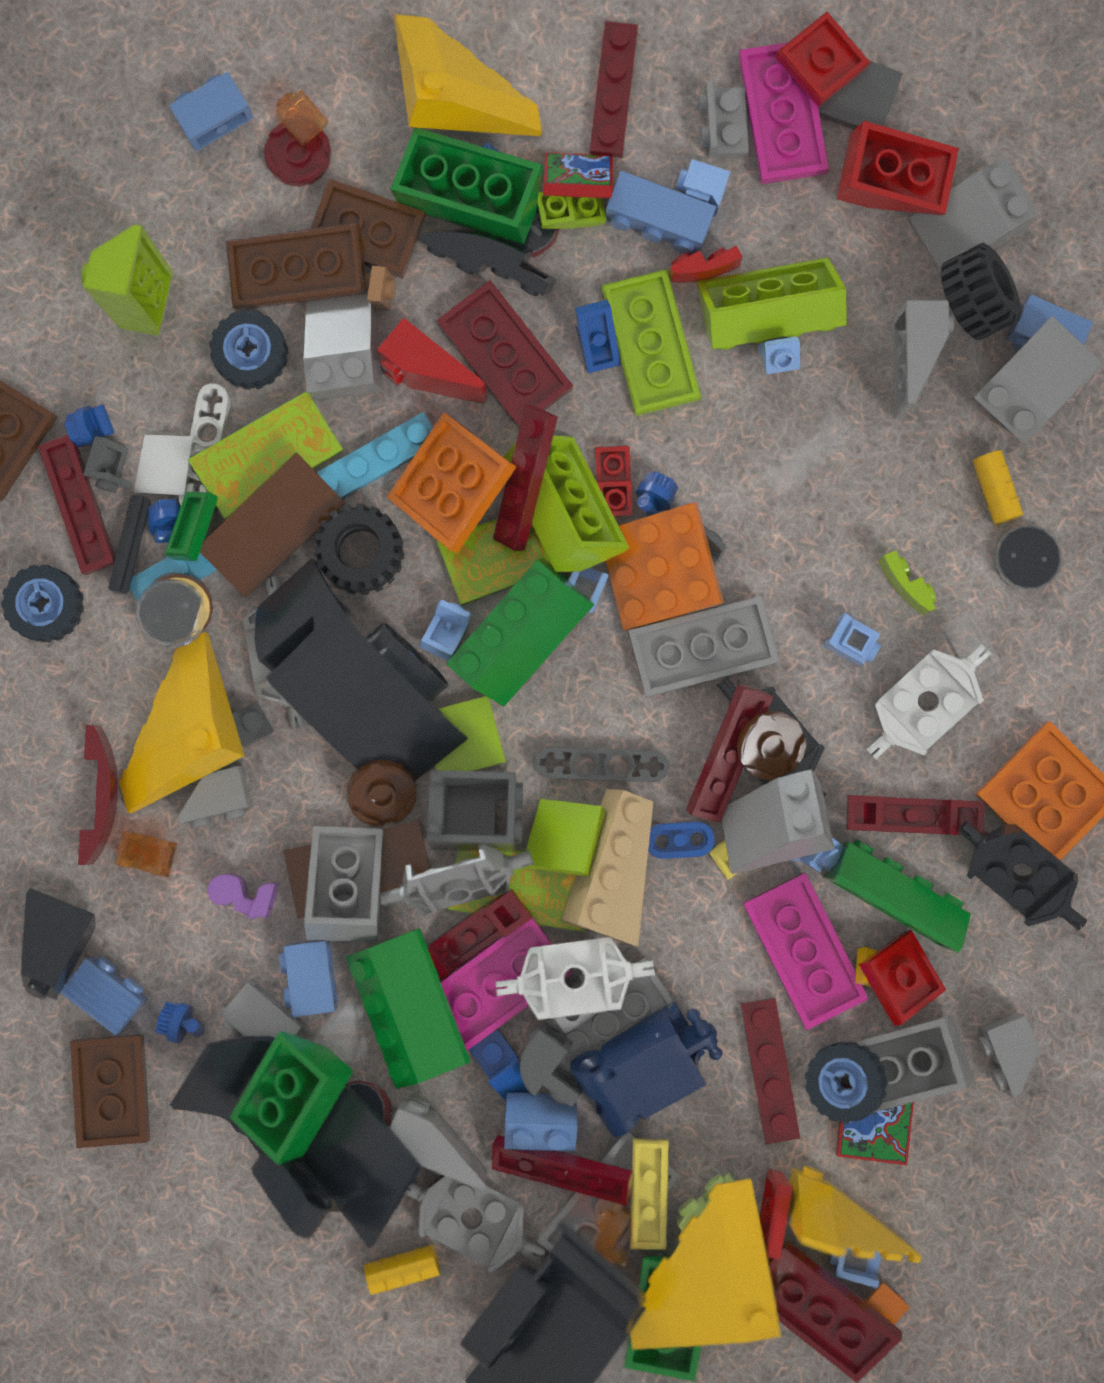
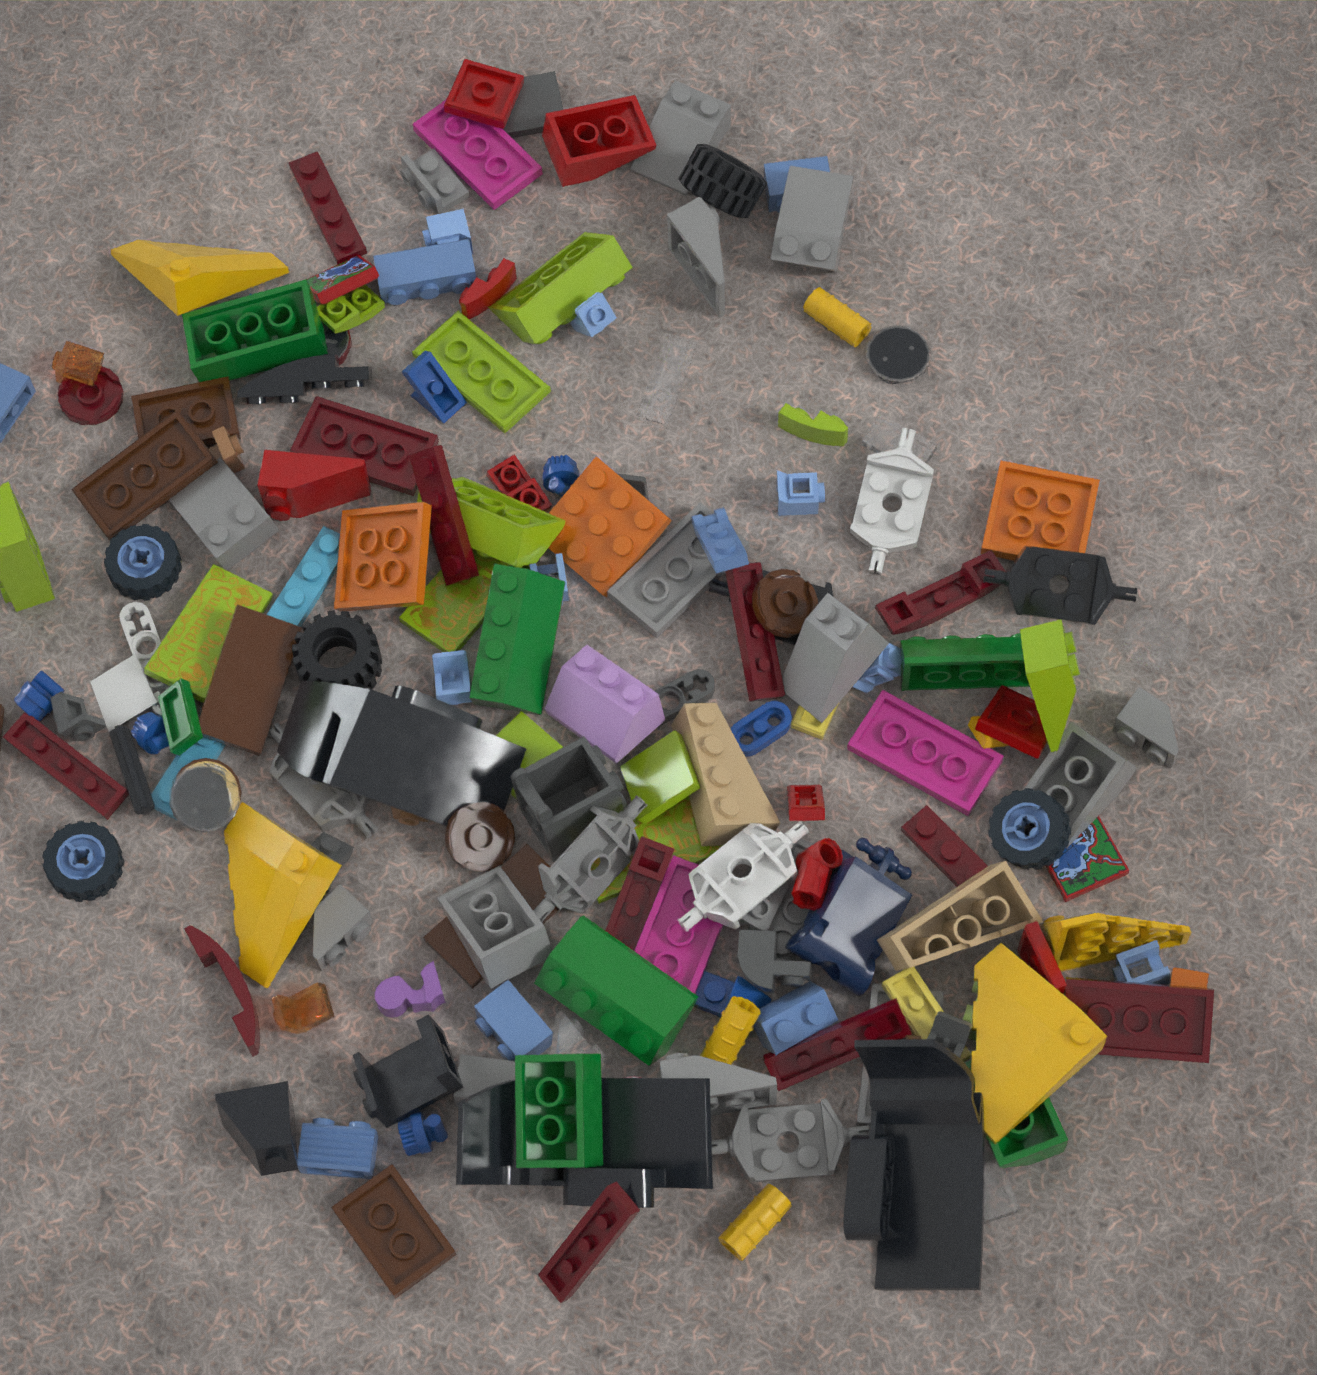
camera: 25 degrees left, 20 degrees down
(194, 971) = (409, 1077): none -> black panel
(249, 1222) = (588, 1242): none -> dark red plate
(478, 1106) = (731, 1030): none -> yellow axle
(556, 741) = (604, 704): none -> lavender slope
(642, 1007) = (814, 873): none -> red piece
(645, 1239) = (950, 1032): none -> dark grey bracket
(672, 939) = (805, 803): none -> red plate
(730, 1136) = (967, 916): none -> tan wedge
(750, 655) = (719, 541): none -> medium blue plate
(954, 982) = (1051, 675): none -> lime slope

